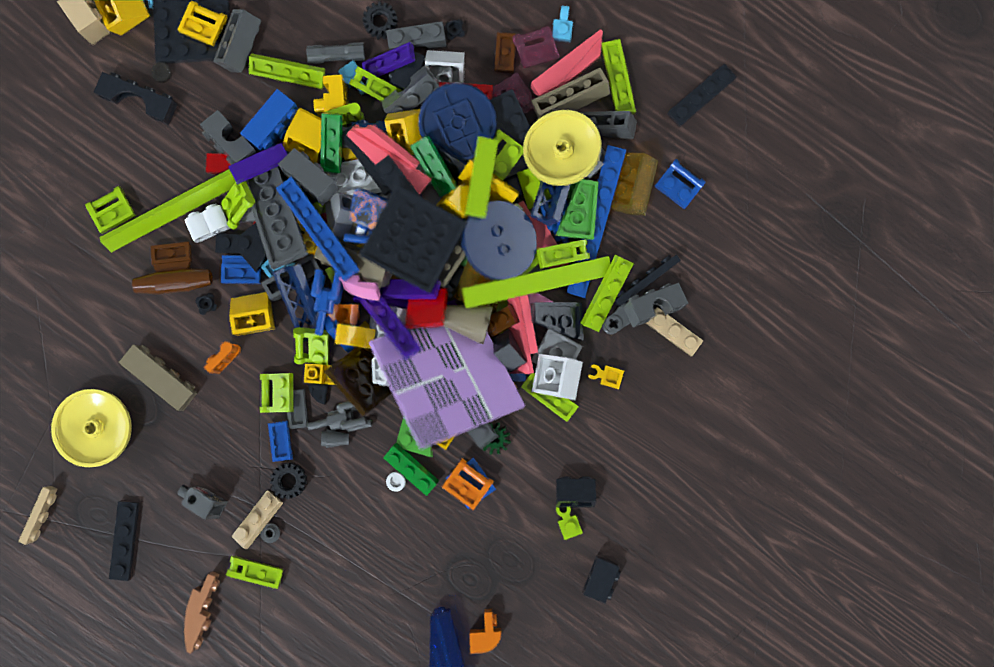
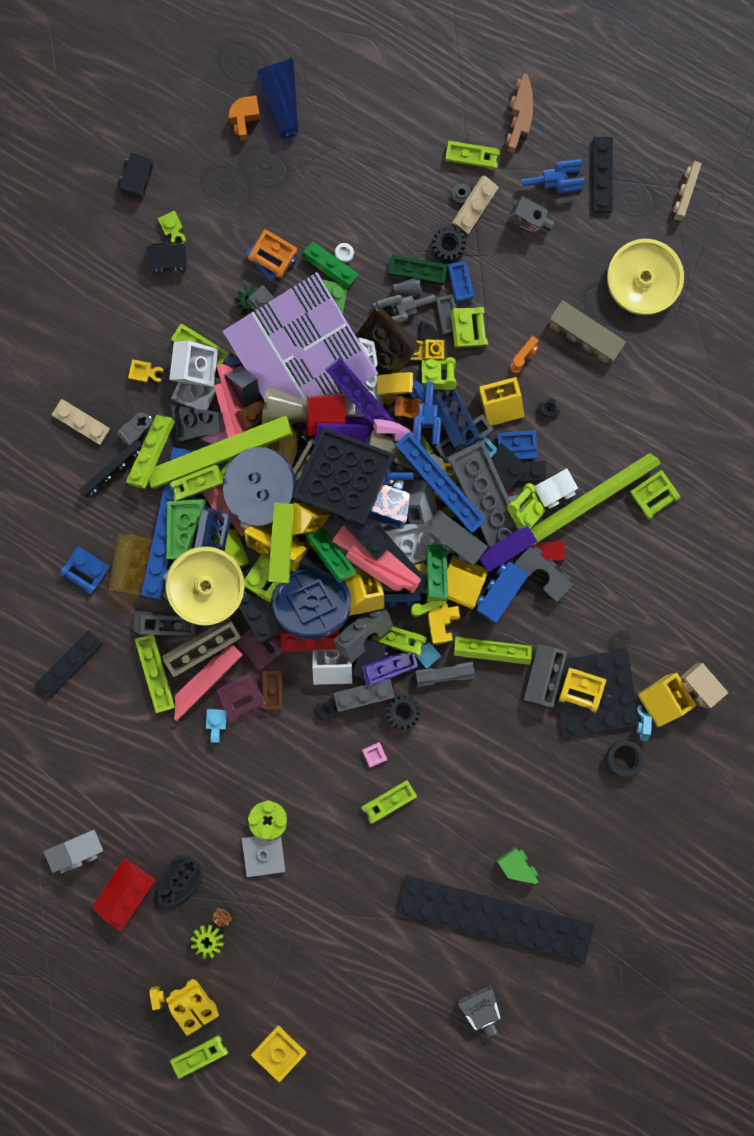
camera: 170 degrees right, 0 degrees up
(114, 89) = (619, 602): black arch -> none
(168, 539) = (557, 177): none -> blue plant
(172, 271) = (585, 436): reddish brown plate -> none
(322, 457) = (418, 269): none -> dark green plate
(641, 309) = (115, 436): dark grey arch -> none

